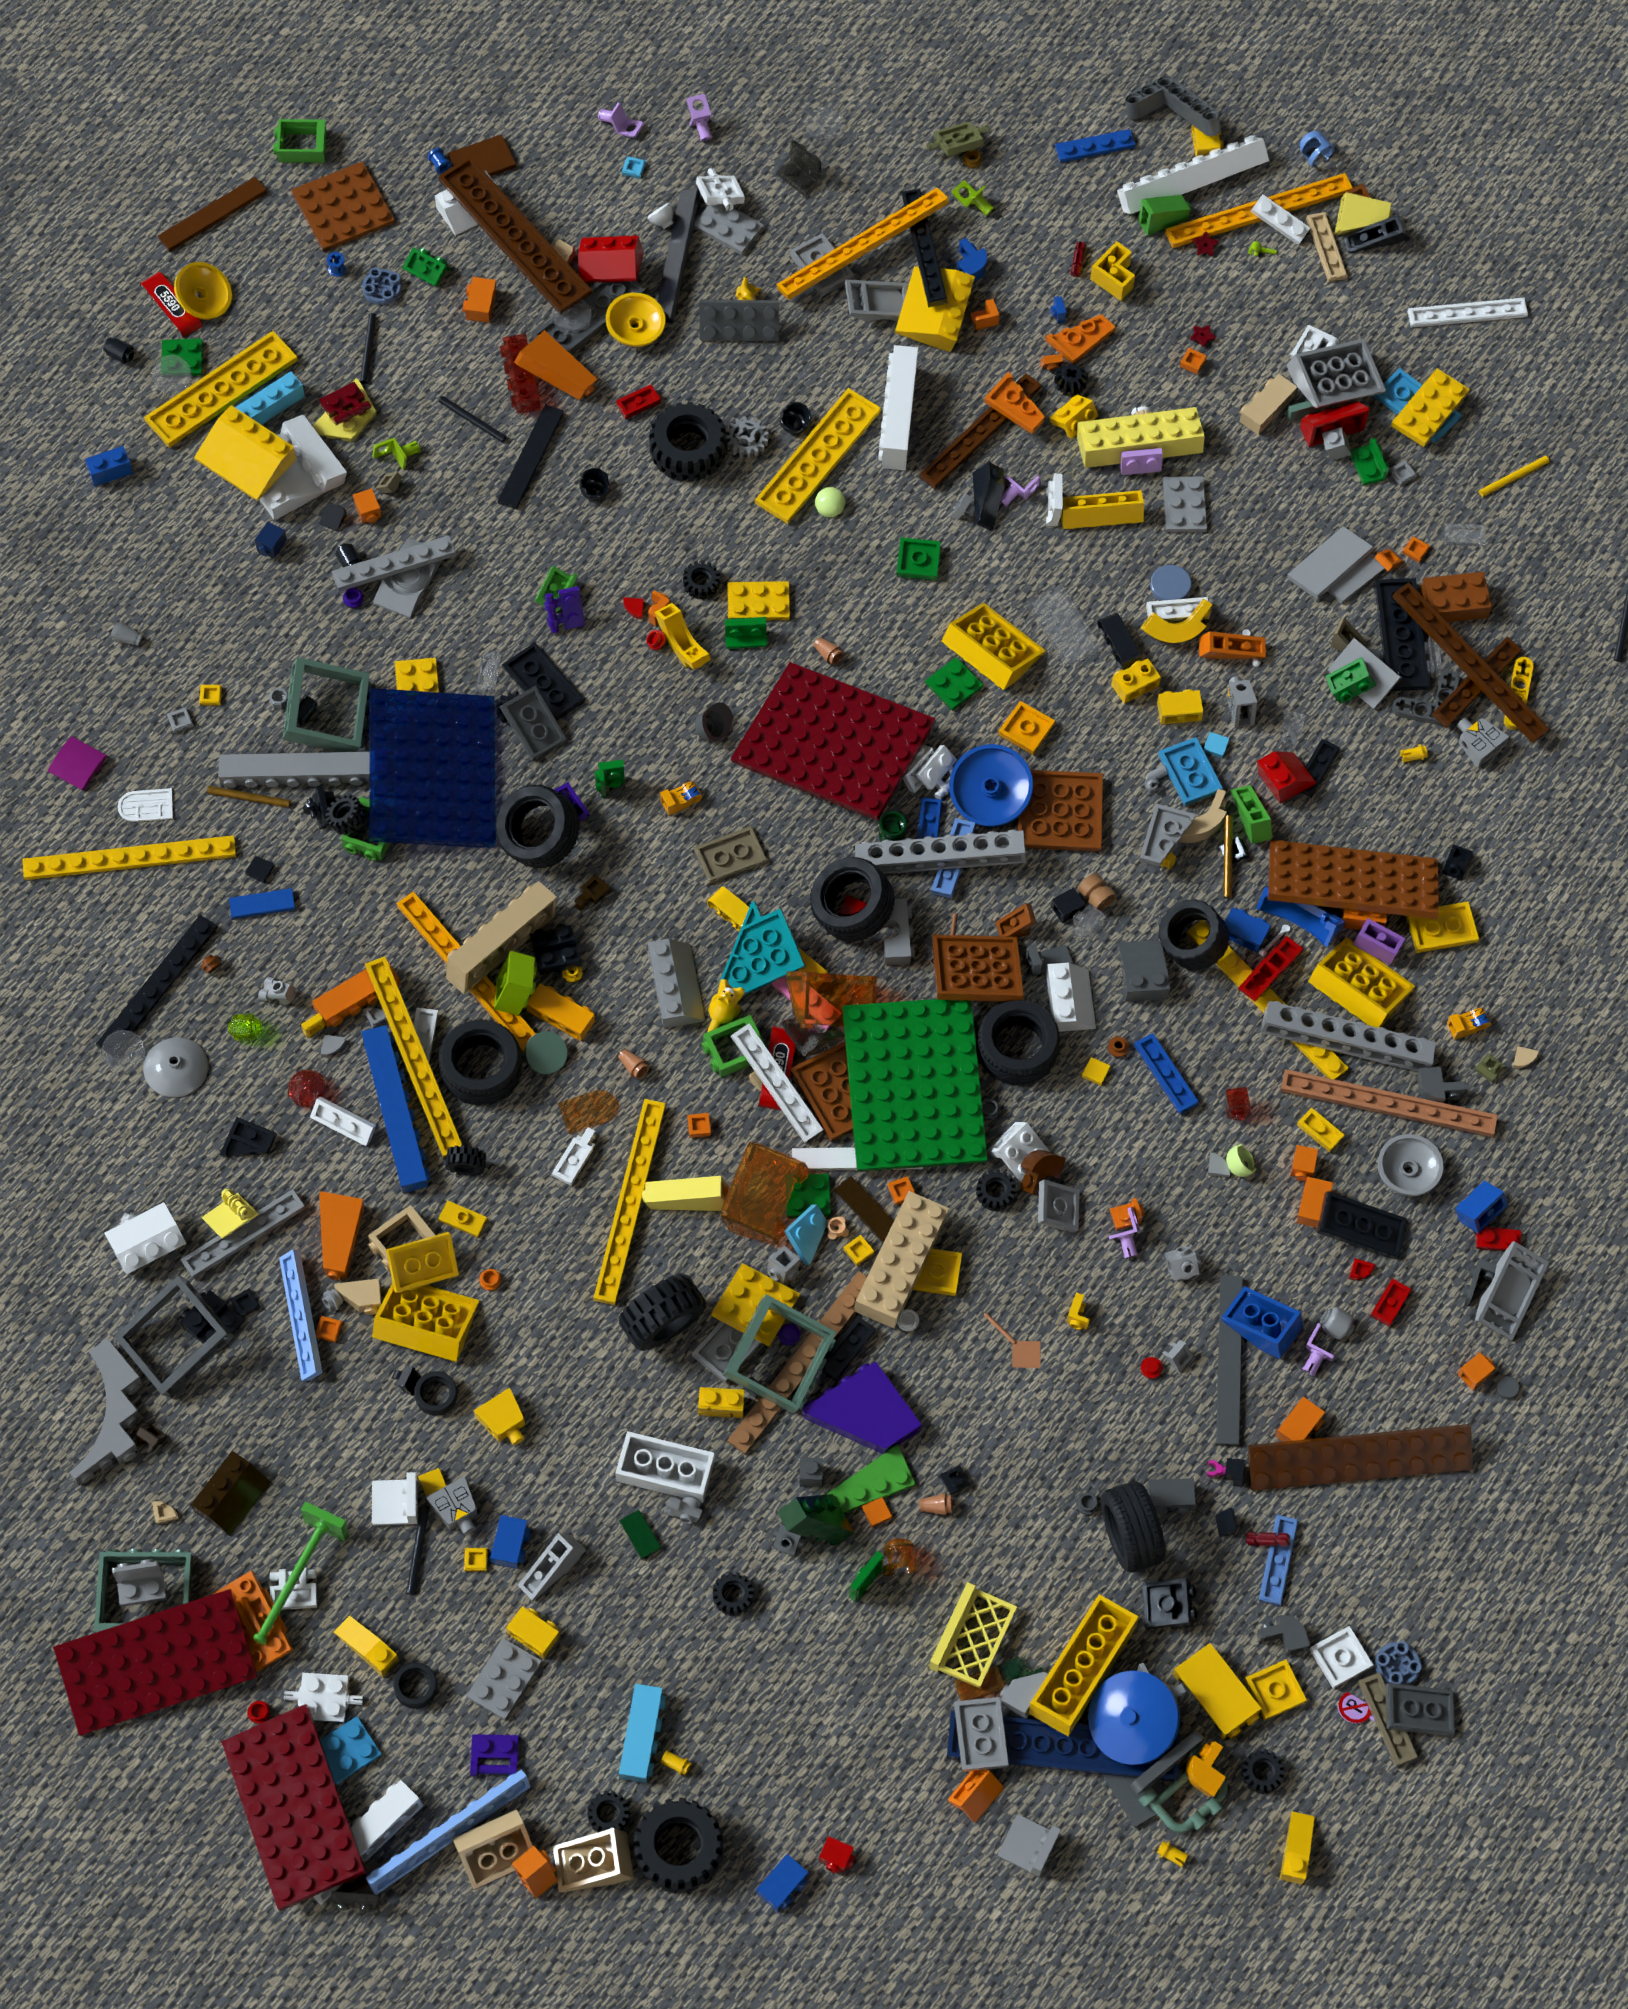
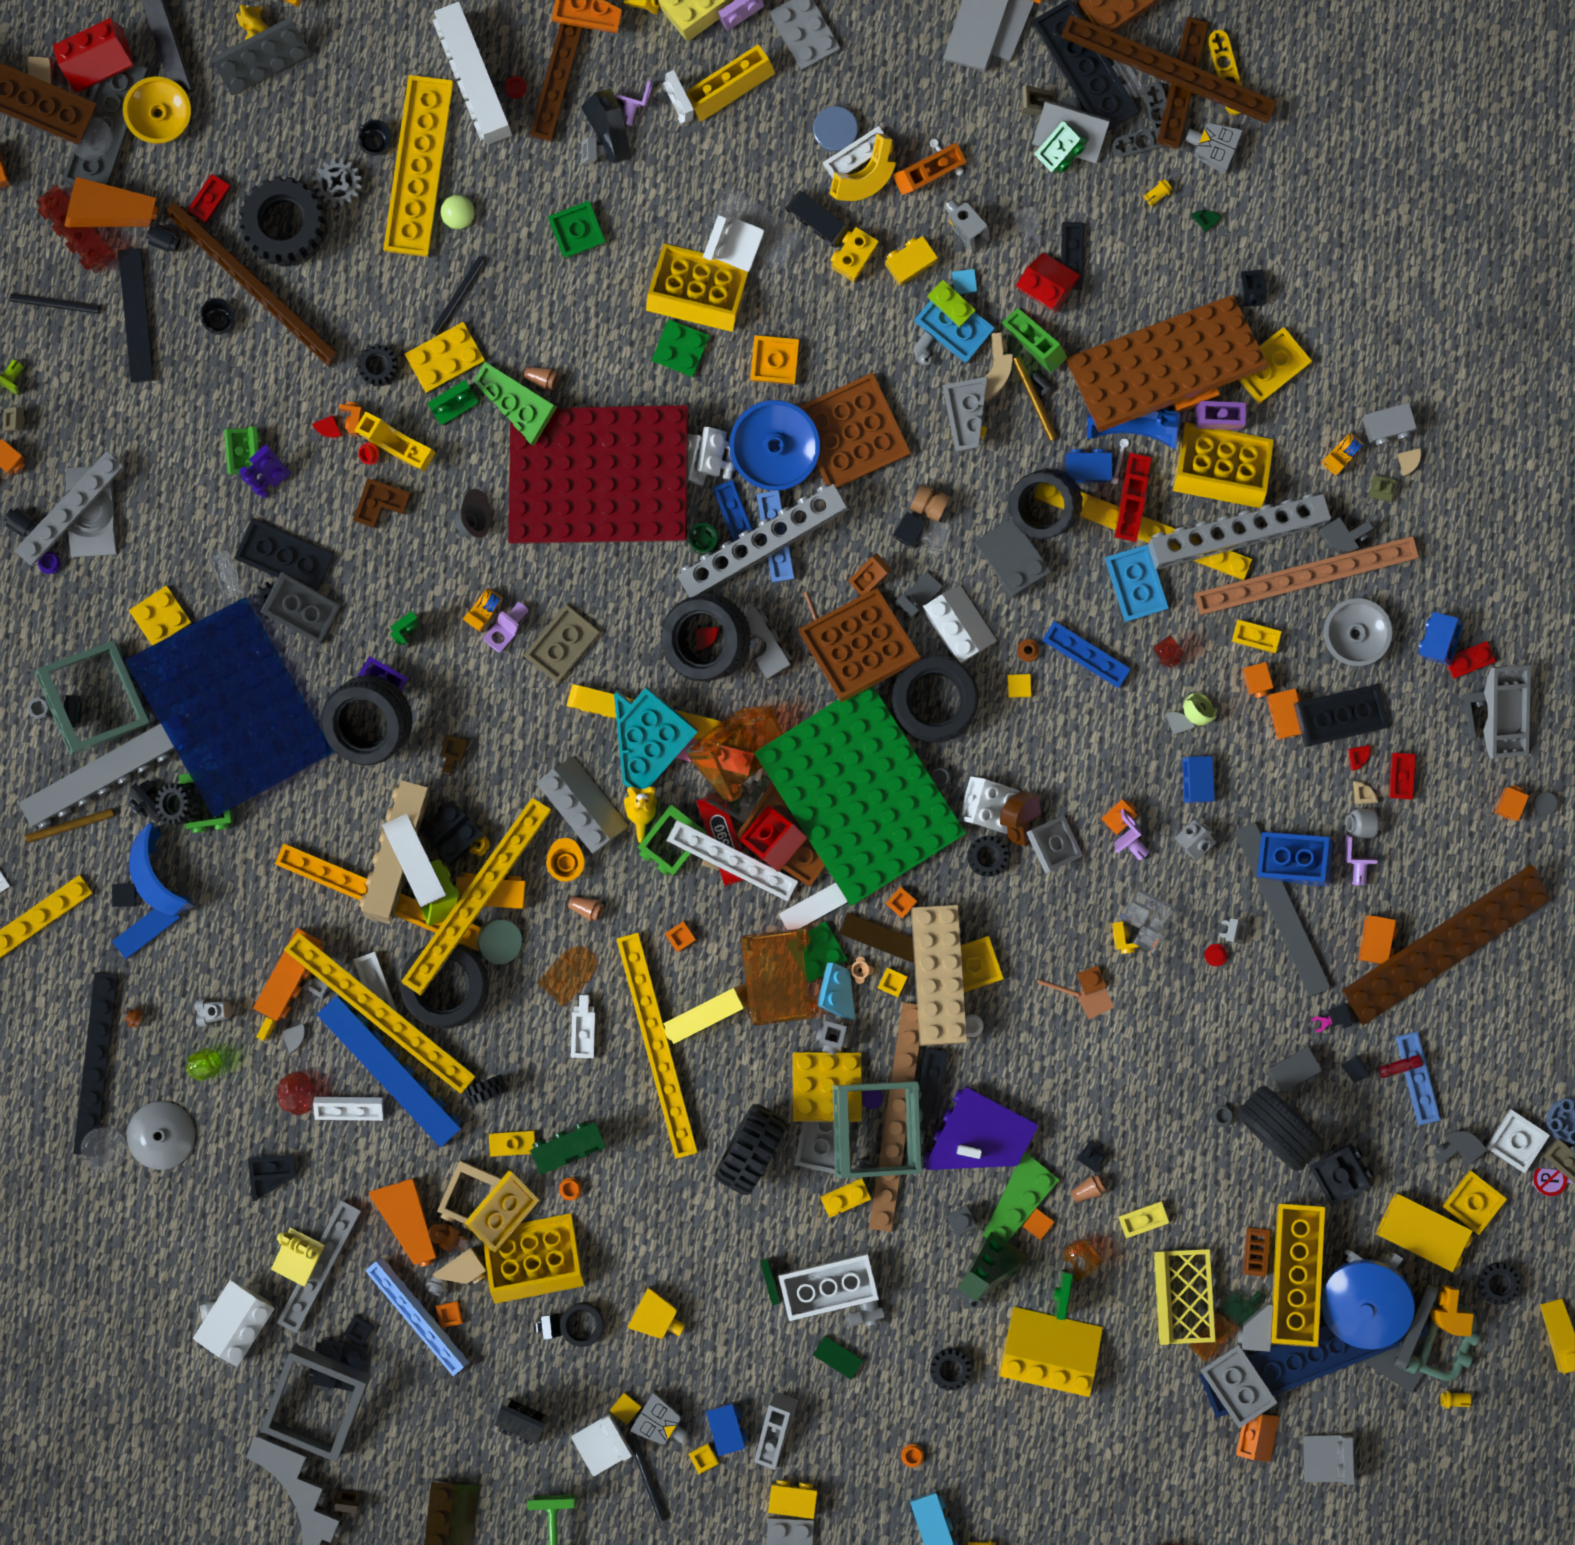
camera: 20 degrees left, 20 degrees up
(285, 869) = (145, 879): none -> blue windscreen
(337, 1440) = (521, 1421): none -> black slope
(364, 1260) = (447, 1237): none -> reddish brown hips
(507, 1240) = (566, 1147): none -> dark green wedge
(513, 939) = (413, 860): none -> white sticker
(547, 1001) = (476, 896): none -> yellow plate
(586, 412) = (163, 238): none -> black brick
(617, 1439) = (770, 1281): none -> dark green tile
(636, 478) = (253, 286): none -> reddish brown plate
(637, 1015) = (565, 860): none -> light orange piece
(643, 674) = (379, 496): none -> reddish brown plate
(659, 1651) = (912, 1455): none -> orange plate
(692, 818) = (507, 625): none -> lavender bracket
(795, 562) = (458, 295): none -> black bar
(798, 656) = (521, 405): none -> bright green wing
(821, 1083) = (773, 838): none -> red slope
(828, 1624) = (1051, 1352): none -> yellow slope
(849, 1411) = (969, 1151): none -> white tile
(928, 437) = (515, 87): none -> red plate
(971, 1554) = (1143, 1219): none -> light yellow plate
(1031, 1335) = (1091, 980): none -> dark orange plate
(1040, 622) = (734, 242): none -> white bracket
(1047, 1648) = (1247, 1251): none -> dark orange slope
(1108, 1303) = (1148, 915): none -> clear brick
(1196, 752) = (951, 303): none -> lime plate
(1210, 1217) = (1198, 779): none -> blue hinge
(1238, 1039) = (1136, 583): none -> dark azure plate
(1350, 1302) = (1363, 793): none -> tan tile
(1444, 793) = (1206, 219): none -> dark green tile
(1521, 1017) = (1389, 423): none -> light grey brick

